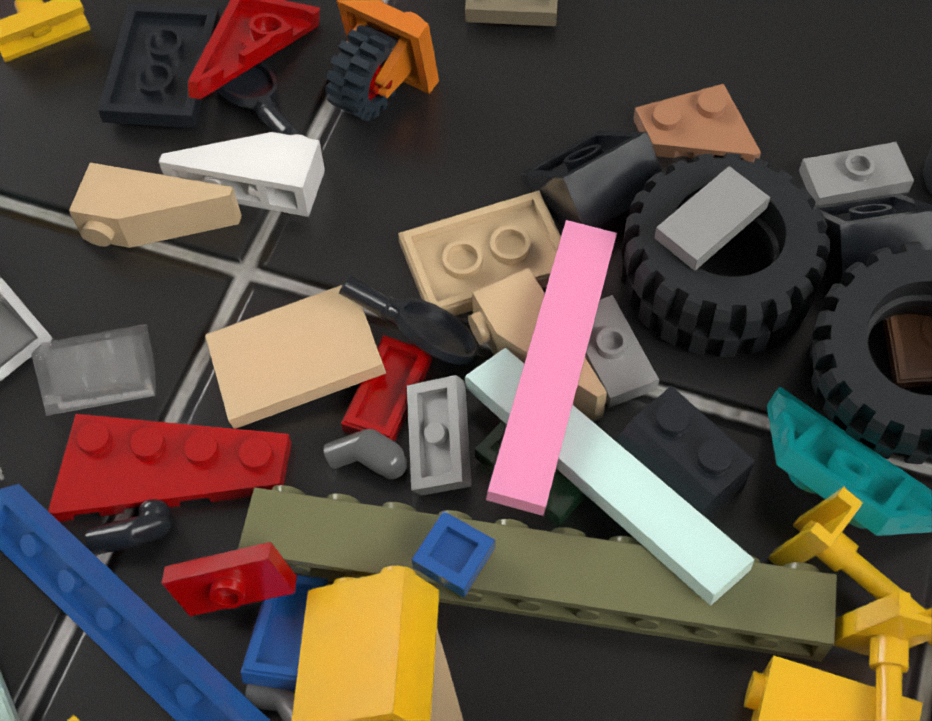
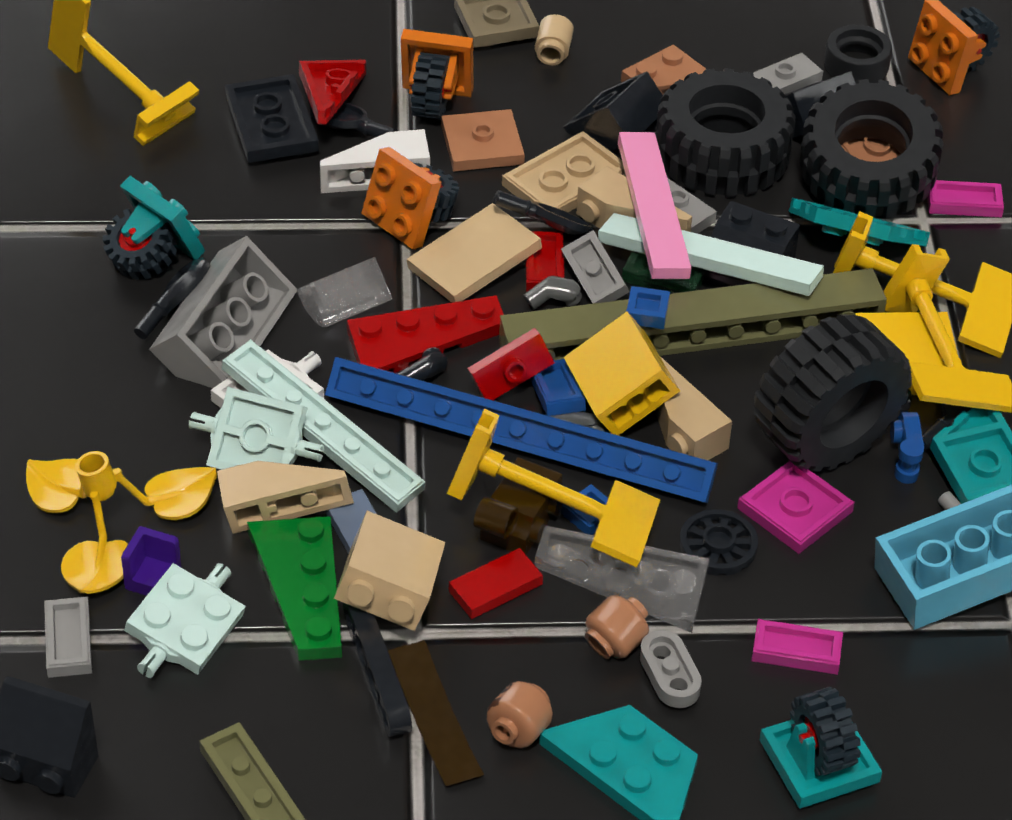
camera: 25 degrees left, 15 degrees down
(145, 207) = (317, 199): tan slope -> none
(253, 239) = (407, 197): none -> orange plate
(404, 167) = (482, 140): none -> nougat plate
(568, 37) = (554, 39): none -> tan brick
(711, 218) = (715, 102): light grey tile -> none

